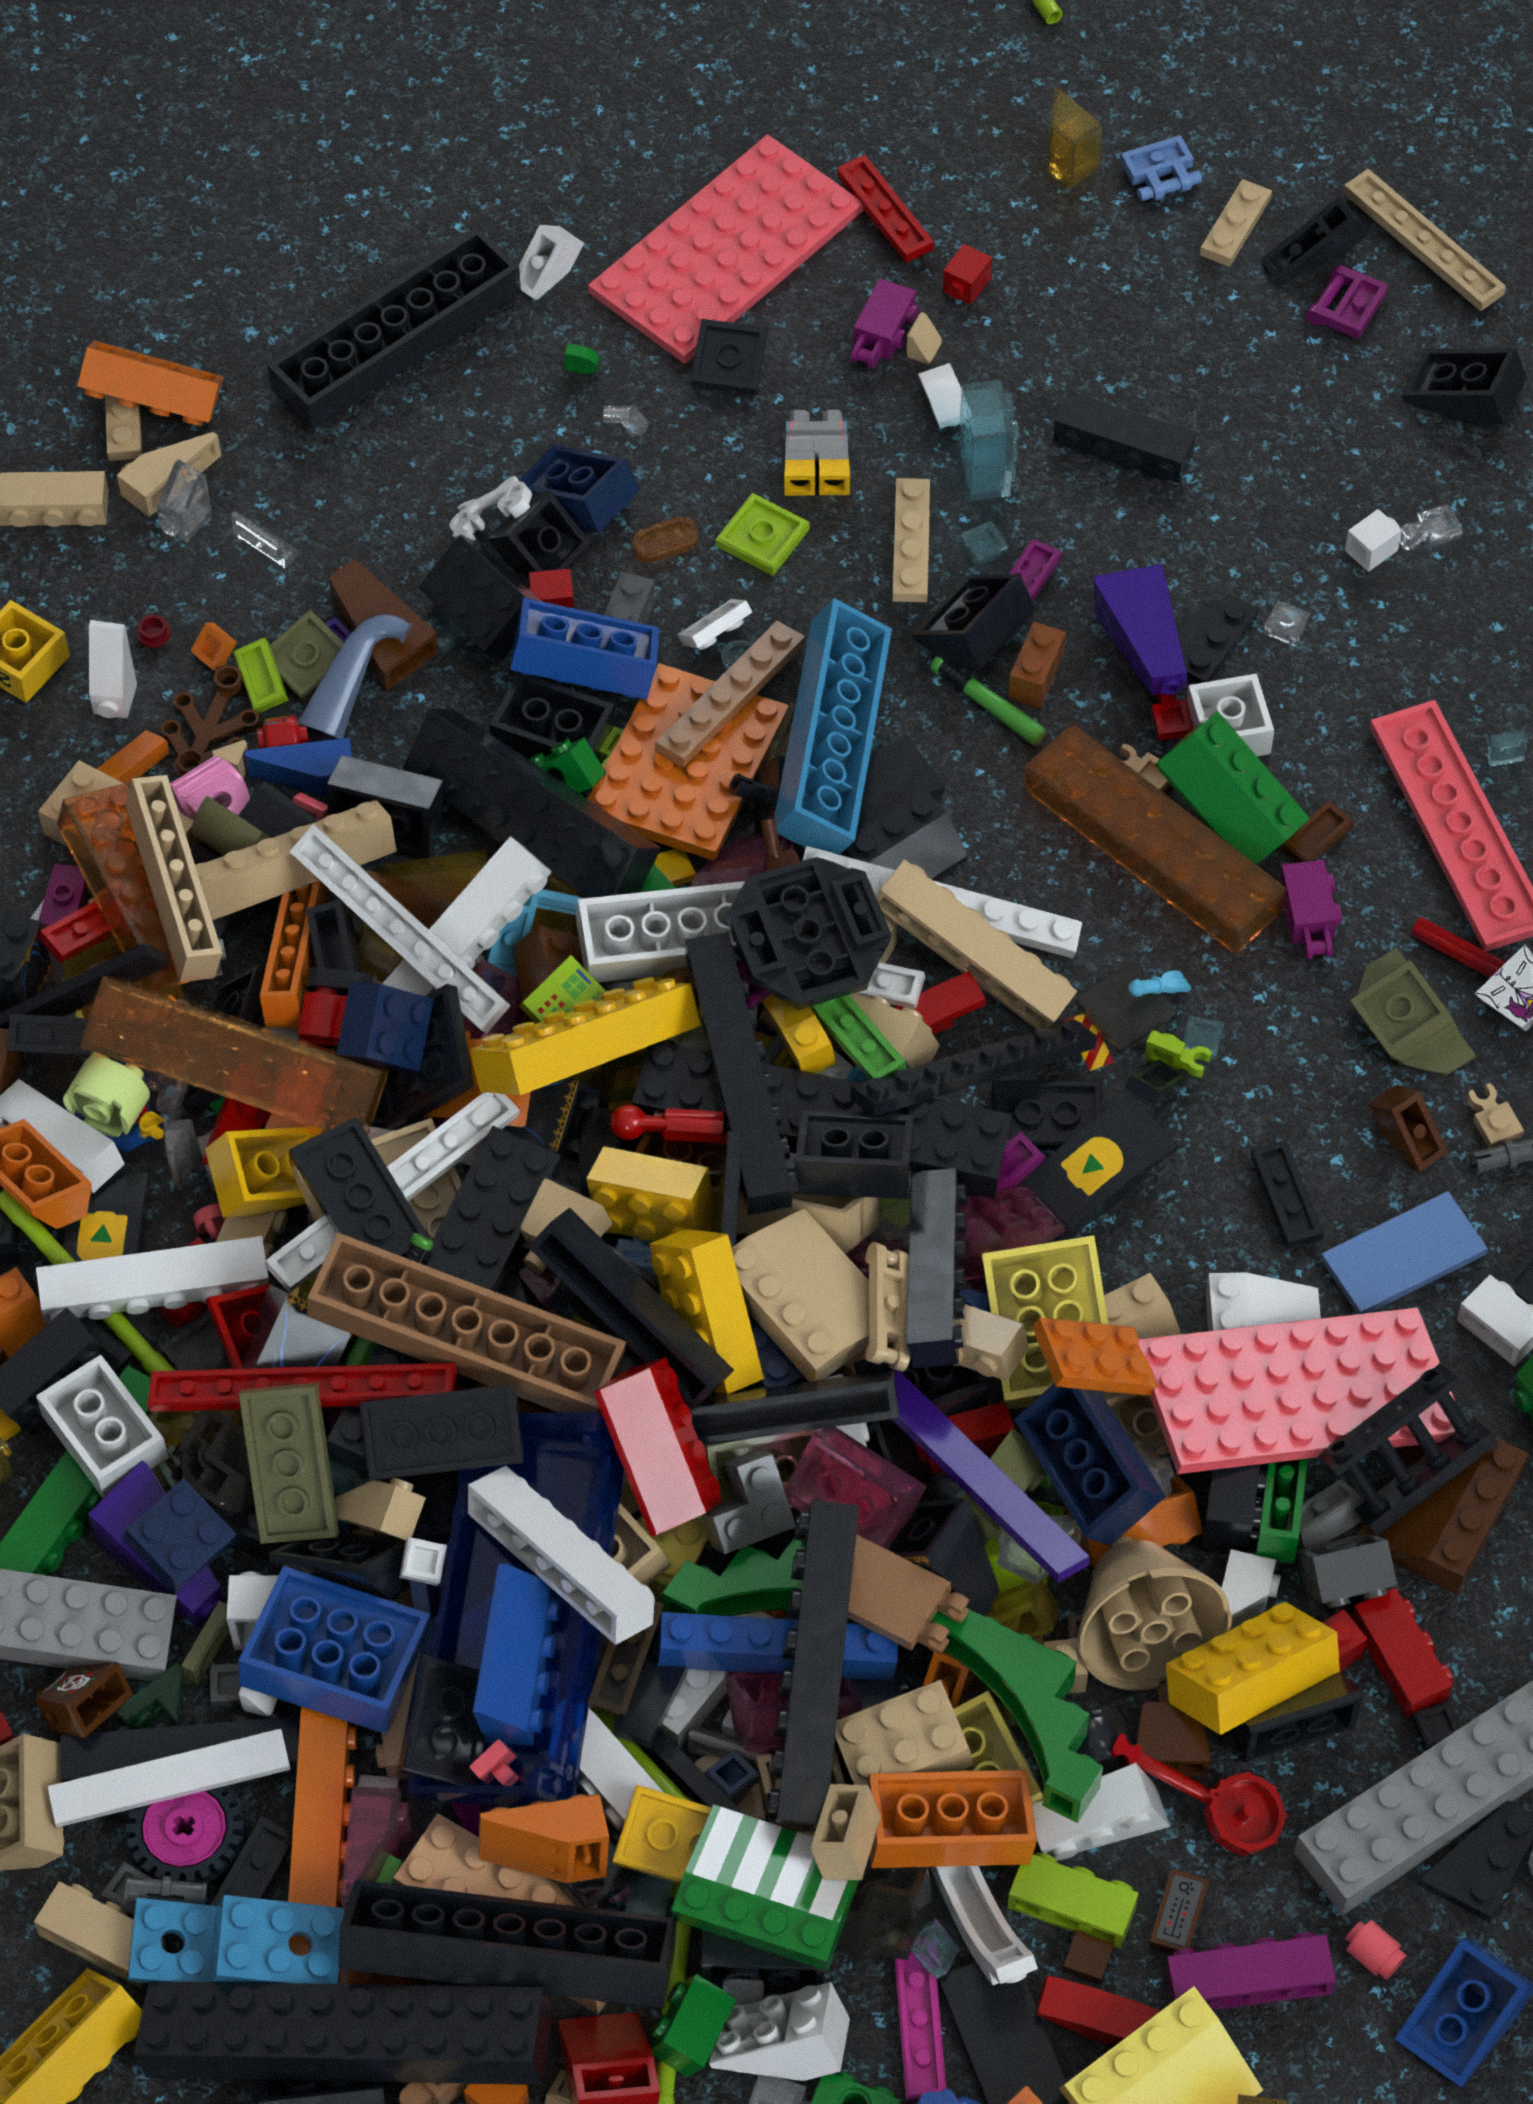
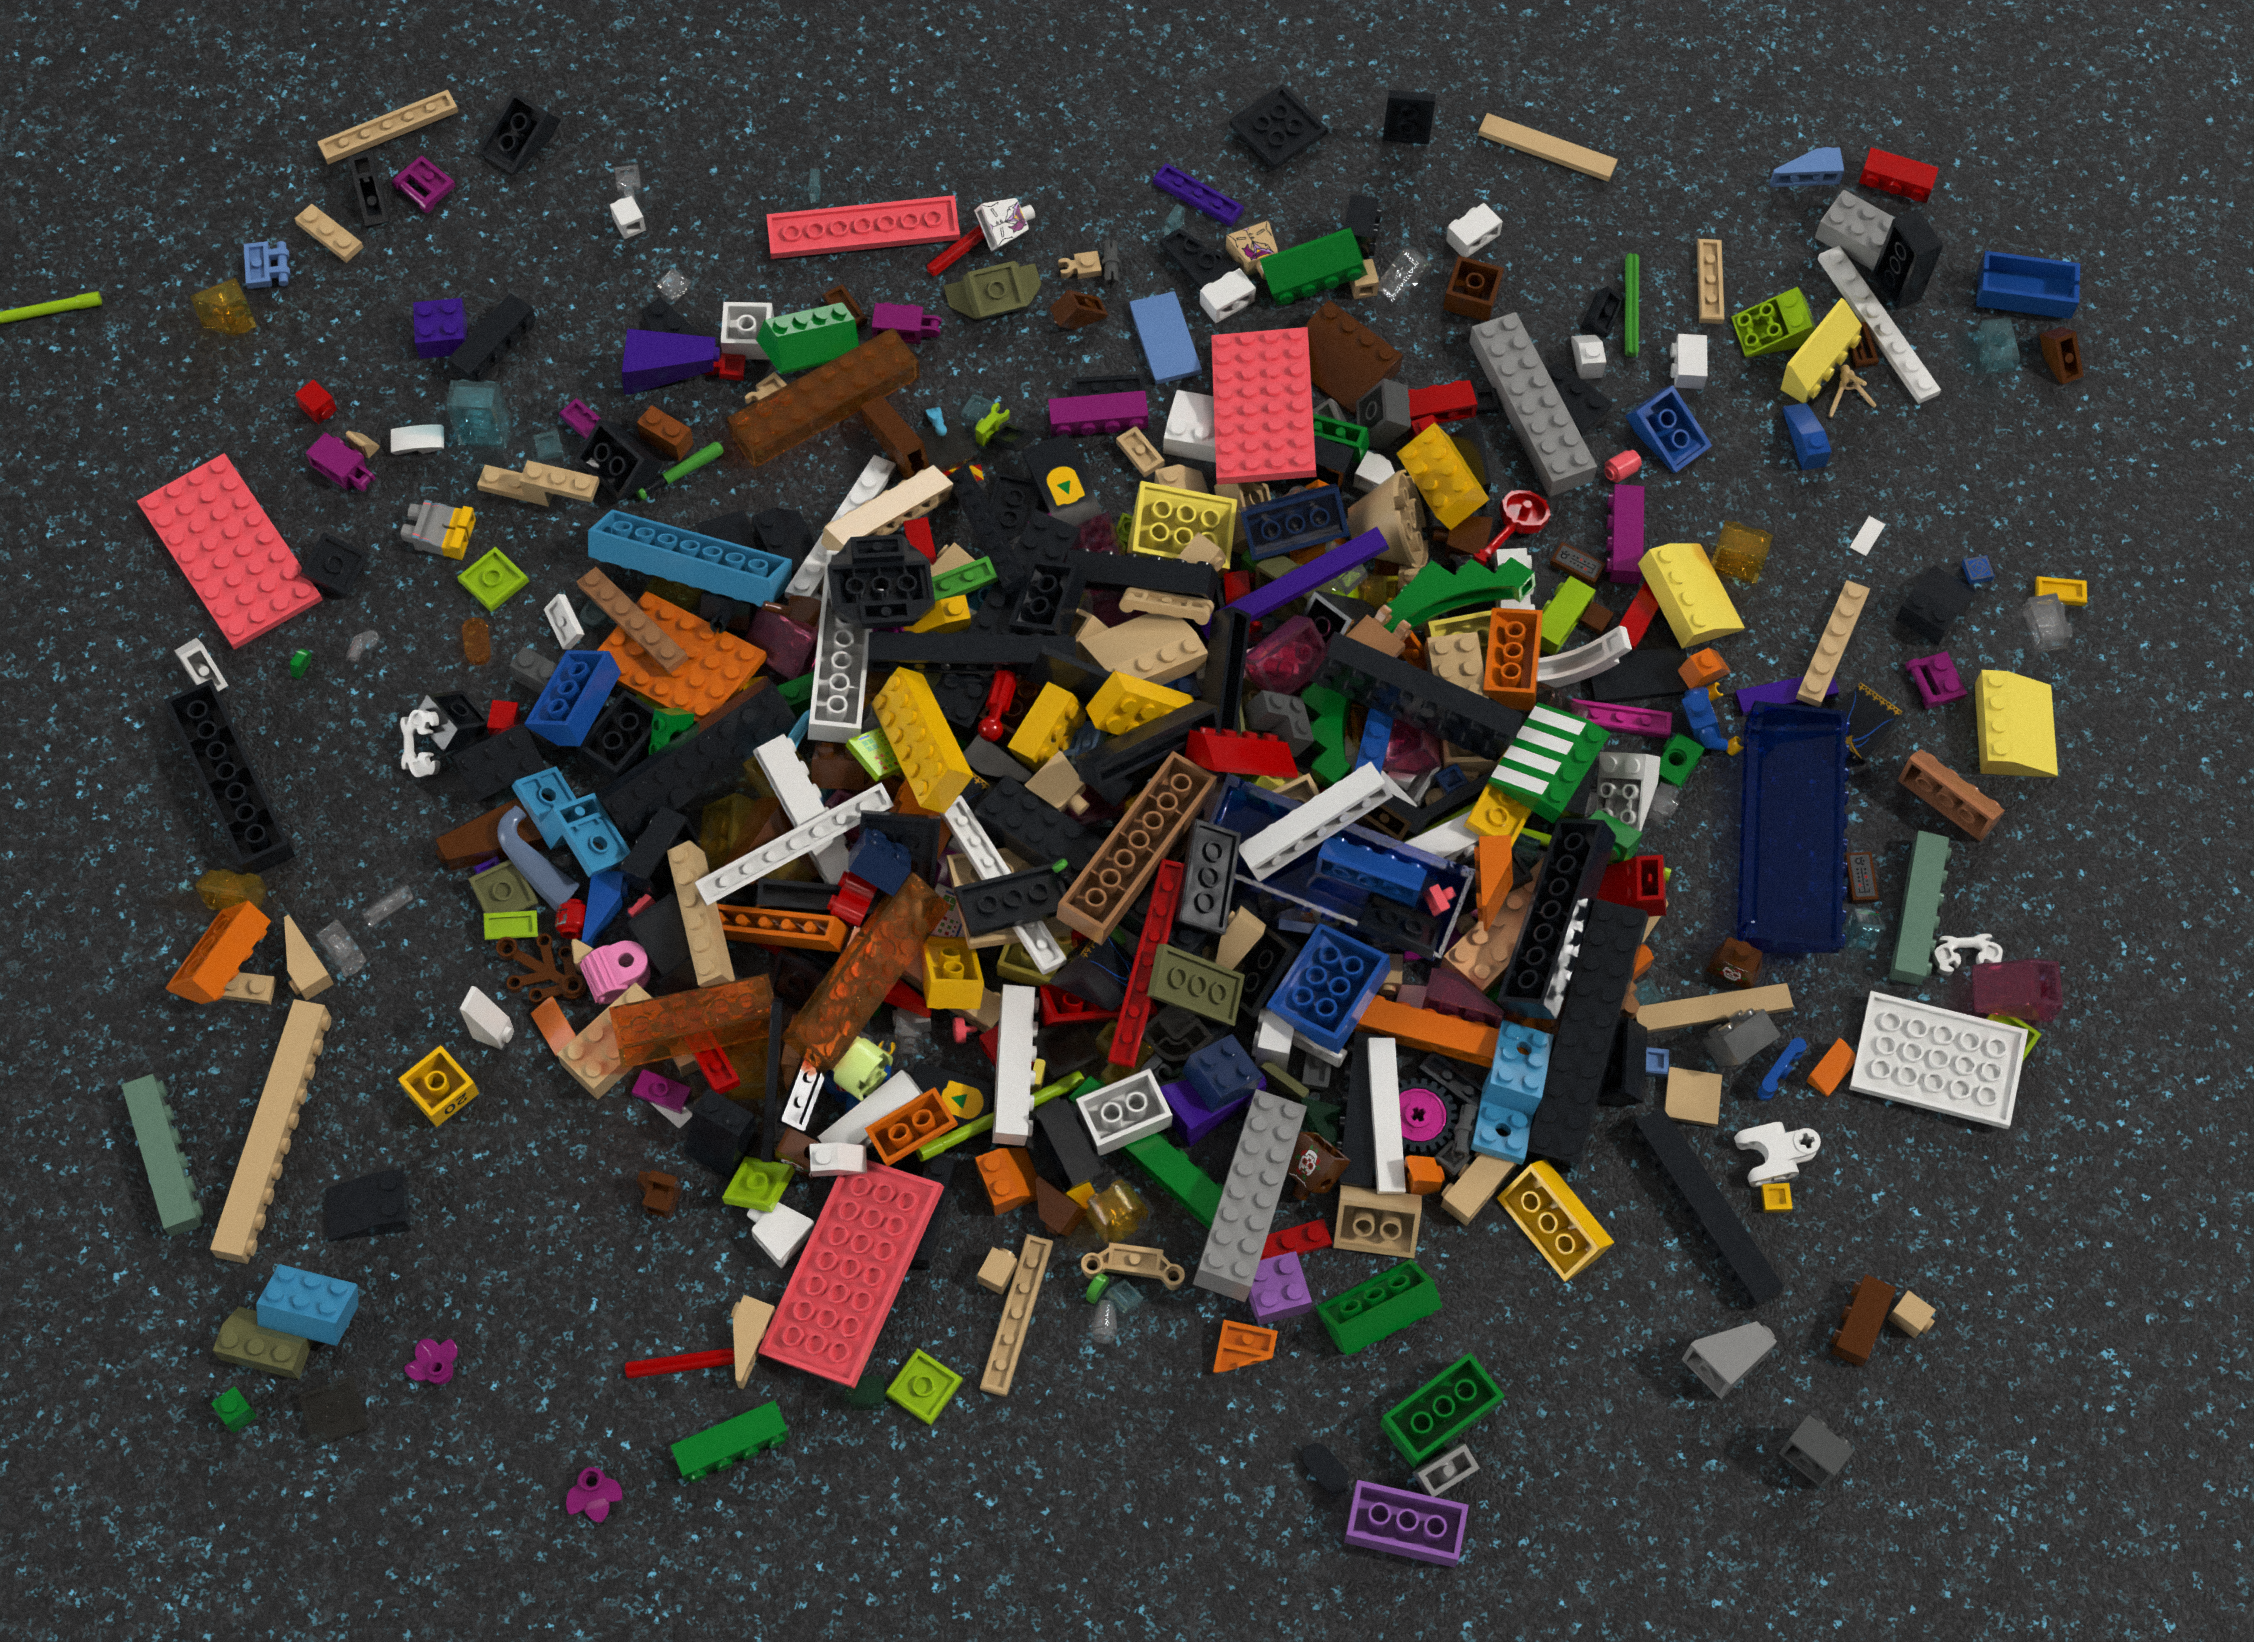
camera: 80 degrees left, 5 degrees up
(90, 1846) = (1422, 1175): none -> orange slope
(153, 631) = (444, 994): dark red plate -> none
(160, 1326) = (1040, 1068): none -> light yellow tile
(173, 878) = (714, 980): tan brick -> none
(213, 646) = (475, 952): orange plate -> none
(223, 829) = (662, 955): olive brick -> none
(242, 372) = (226, 889): none -> clear yellow slope
(335, 979) = (826, 890): black beam -> none
(408, 691) = (571, 821): none -> dark azure bracket
(423, 1561) = (1285, 916): white tile -> none
(585, 483) = (410, 680): dark blue slope -> none
(845, 1832) = (1532, 701): tan brick -> none
(885, 208) = (235, 440): red plate -> none
(935, 1949) = (1582, 695): clear light blue tile -> none
(1094, 1356) = (1230, 497): orange plate -> none
(1111, 937) = (895, 437): none -> reddish brown slope
(1122, 372) = (439, 327): none -> dark purple brick
(1191, 1257) = (1140, 451): none -> tan plate
(1236, 1188) = (1098, 413): none -> magenta brick
(1428, 1473) = (1319, 356): black fence -> none

